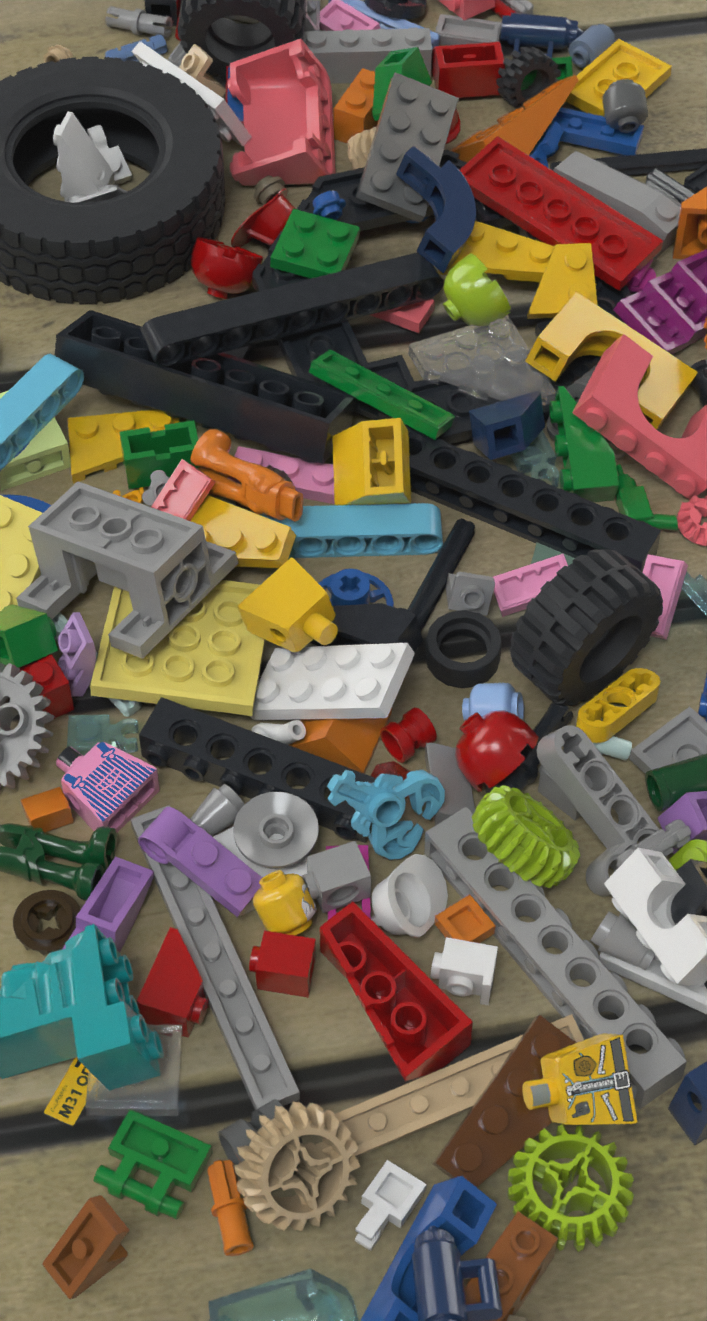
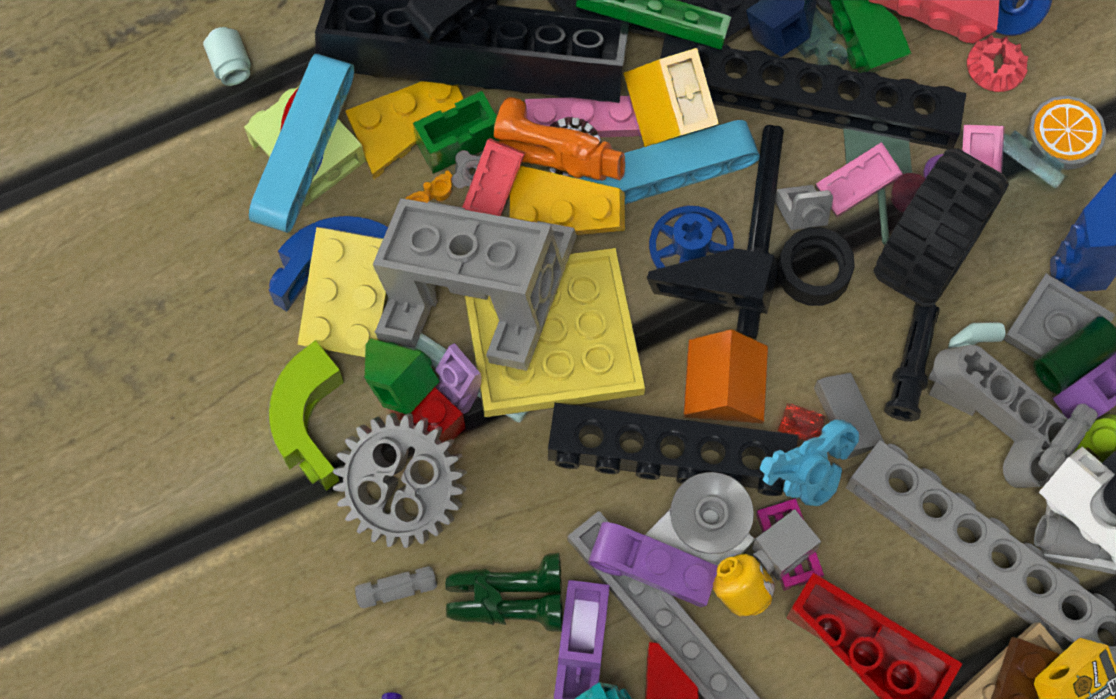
camera: 15 degrees left, 15 degrees up
(45, 905) = (515, 644): dark brown gear -> none
(47, 810) = (480, 543): orange slope -> none
(88, 730) = (496, 453): clear light blue plate -> none
(106, 784) = (529, 506): bright pink torso -> none
(218, 810) = (644, 504): light grey cone -> none
(284, 963) = (761, 643): red brick -> none
(286, 733) = (674, 405): white arm -> none
(290, 609) = (651, 279): yellow torso -> none
(332, 682) = (714, 343): white plate -> none
(408, 734) = (795, 374): red wheel -> none
(410, 897) = (855, 546): white piece -> none
(465, 921) = (911, 555): orange plate -> none
(465, 968) = (928, 601): white brick -> none
(492, 747) = (887, 373): red cylinder -> none
(493, 697) = (866, 324): light blue head -> none
(525, 836) = (946, 457): lime gear -> none
(620, 691) = (982, 303): yellow beam -> none
(634, 503) = (928, 69): green piece -> none

